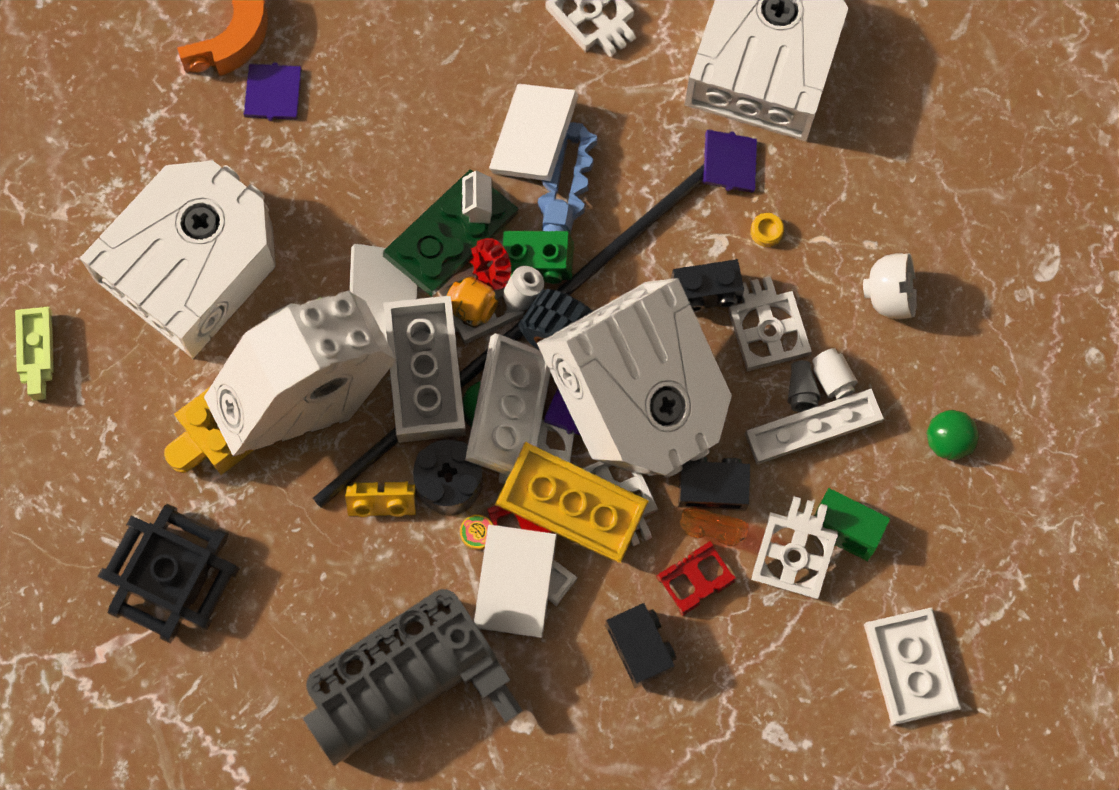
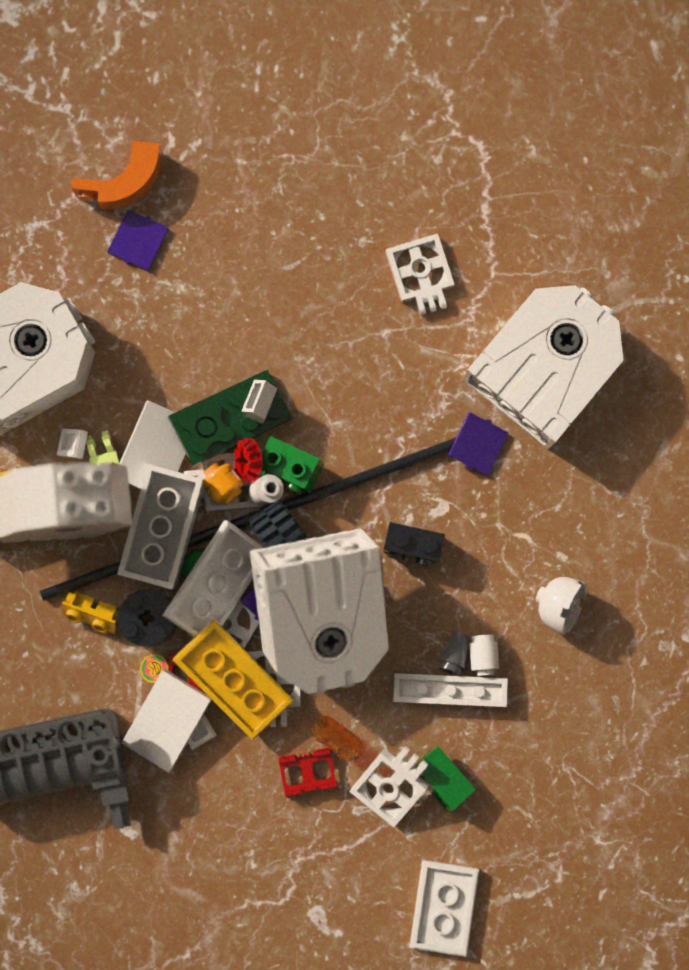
camera: 20 degrees right, 10 degrees up
(534, 132) = (330, 358): white tile -> none
(556, 212) = (321, 437): medium blue sword -> none
(640, 644) = (240, 810): black brick -> none
(714, 484) = (351, 708): black brick -> none
(761, 302) = (452, 570): white piece -> none
(767, 230) = (483, 512): yellow tile -> none
(952, 435) = (556, 739): green hair -> none

